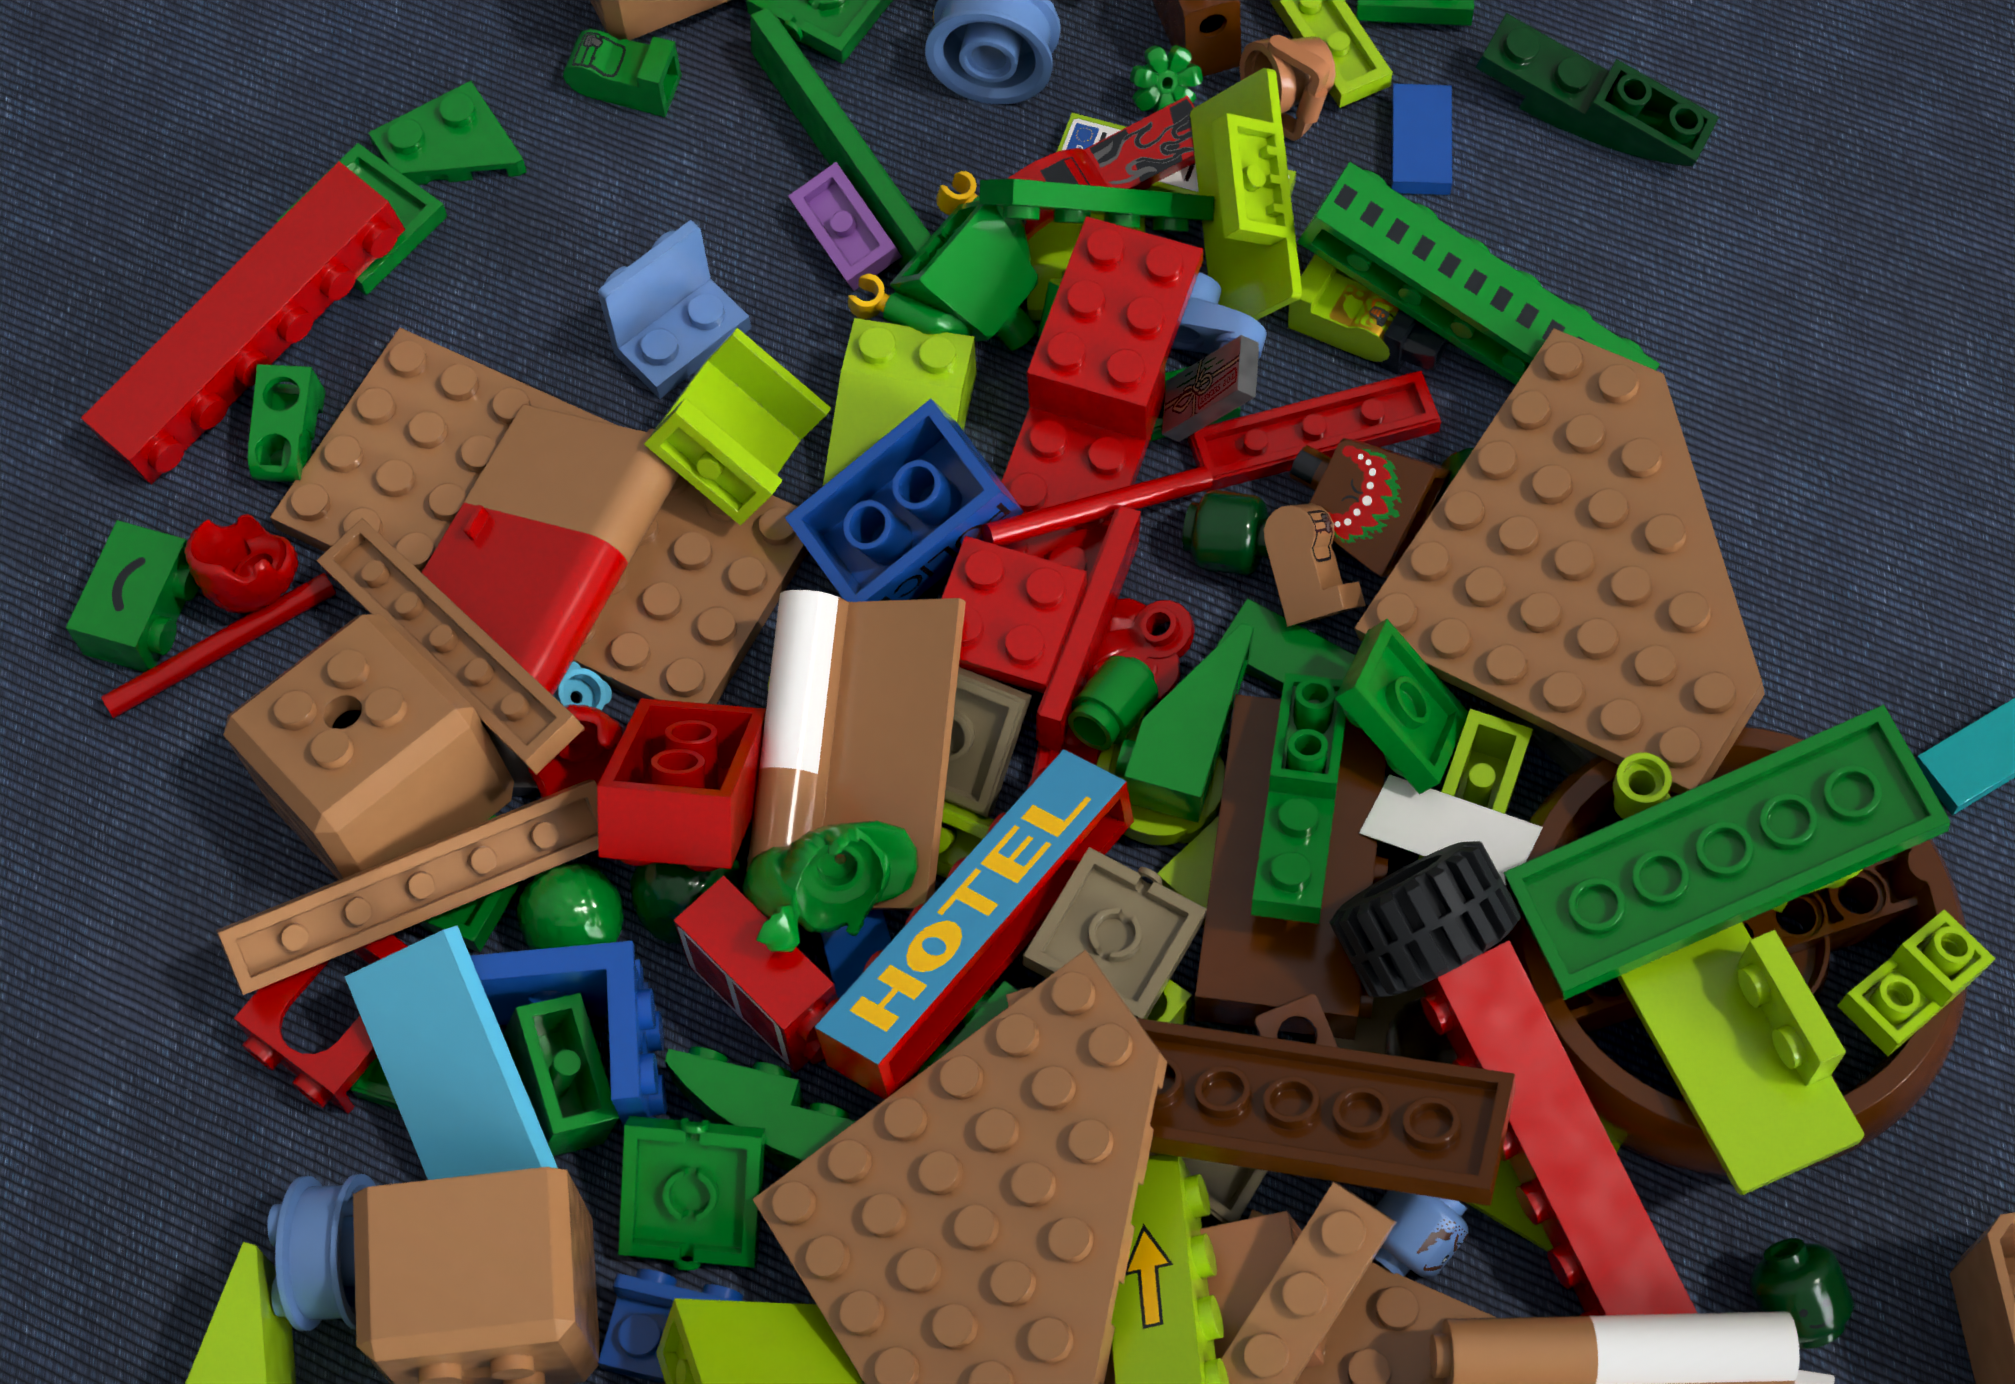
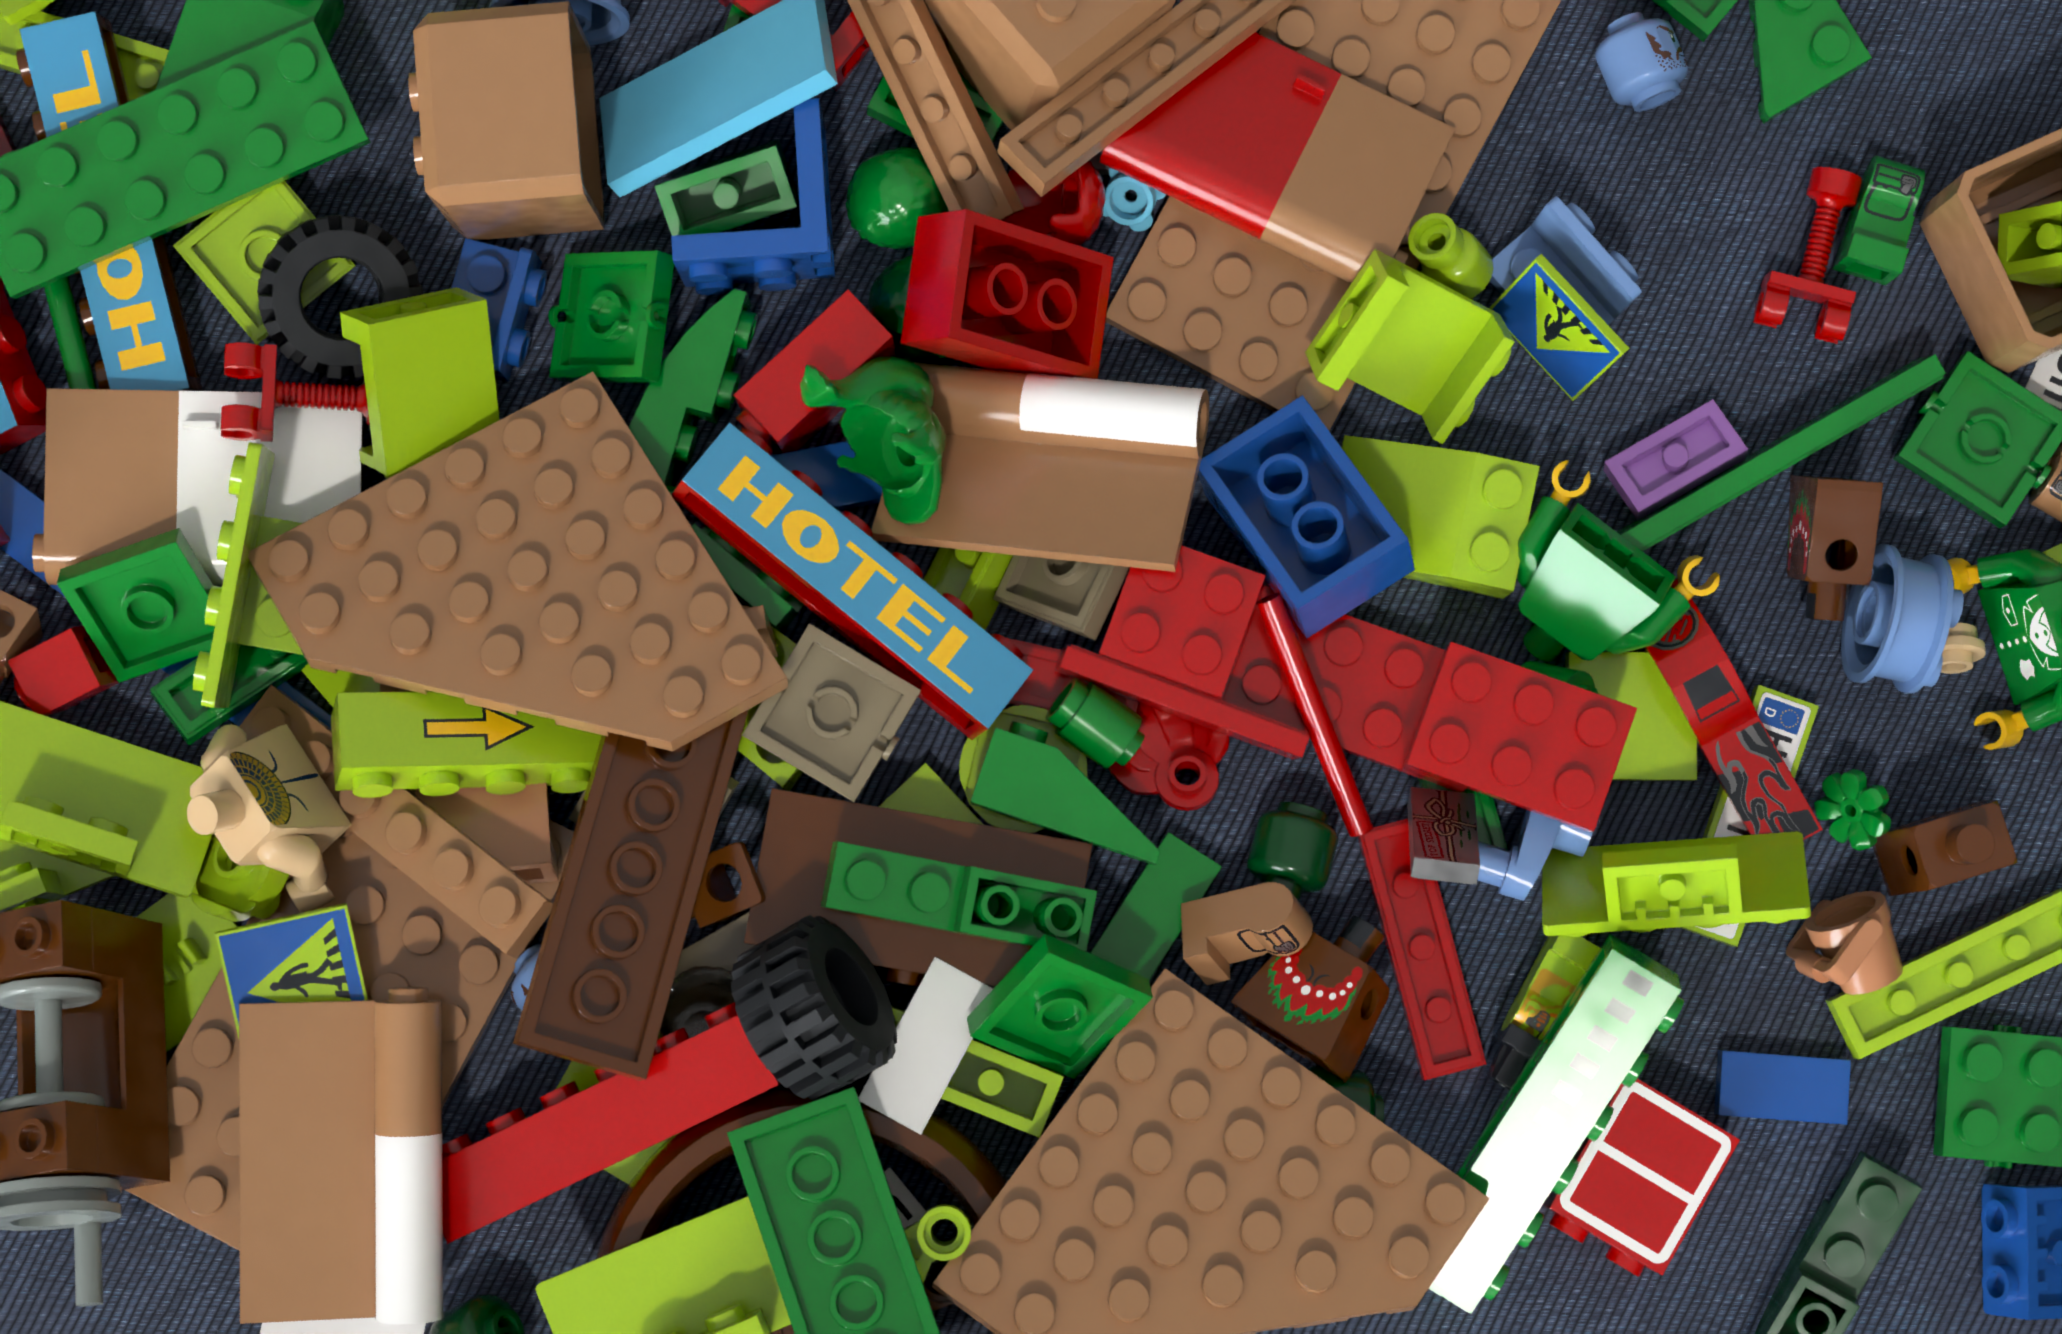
camera: 85 degrees right, 20 degrees up
(465, 256) = (1641, 62): none -> medium blue head
(643, 402) = (1450, 254): none -> lime piece
(686, 150) = (1832, 192): none -> red bar
(716, 299) = (1558, 327): none -> piece
(917, 95) = (1827, 513): none -> reddish brown torso
(1074, 202) = (1670, 722): green plate -> none
(1527, 224) = (1642, 1179): none -> red brick

